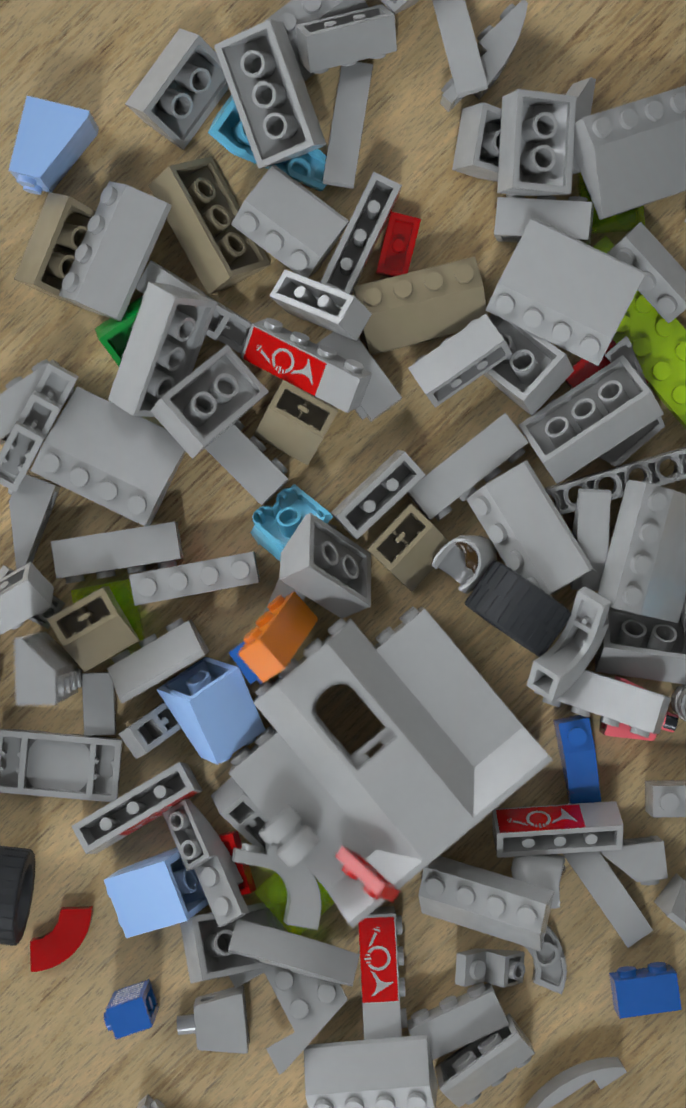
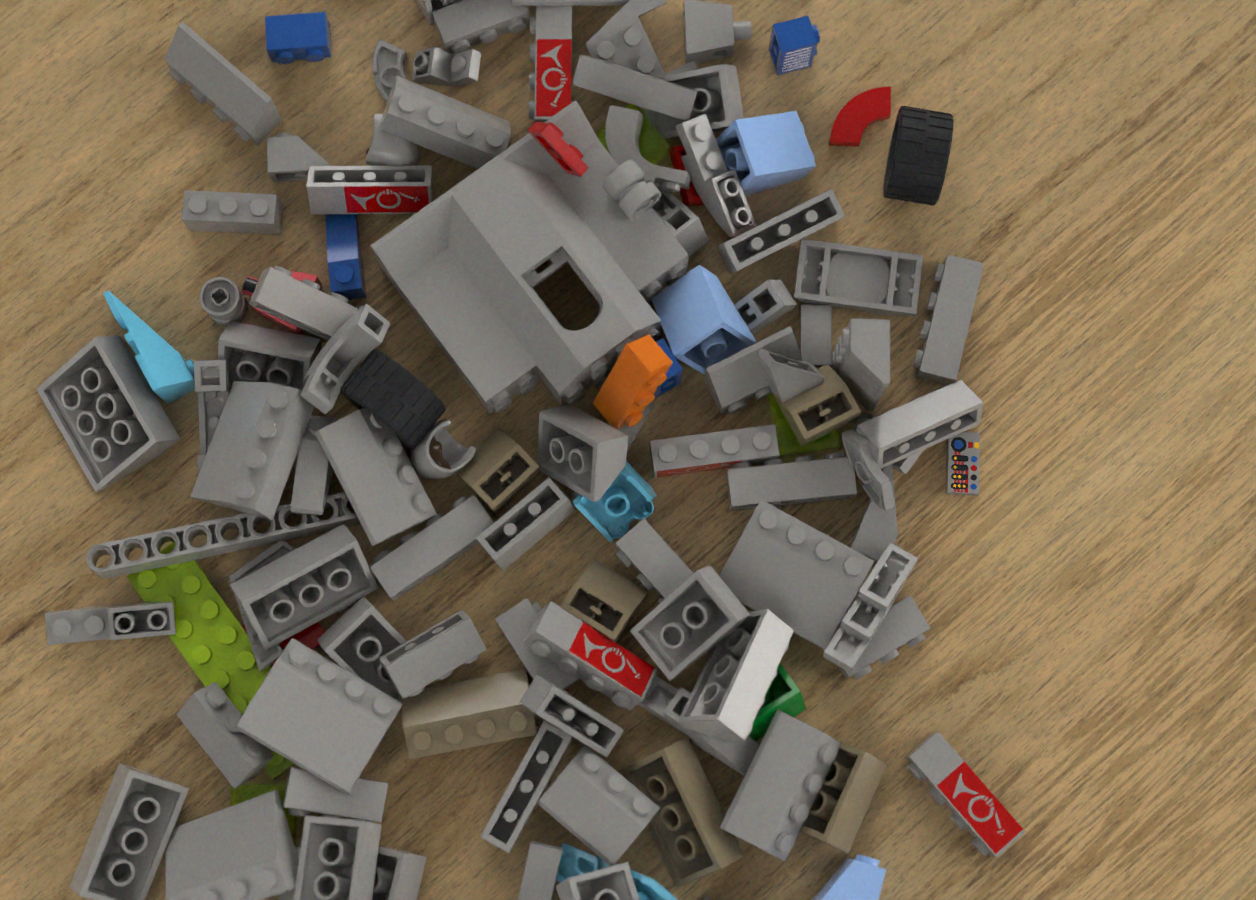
camera: 175 degrees left, 10 degrees down
(32, 550) = (861, 458): none -> light grey tile
(121, 655) = (788, 375): none -> light grey slope
(398, 245) = (488, 779): red plate -> none
(610, 895) = (323, 125): light grey slope -> none

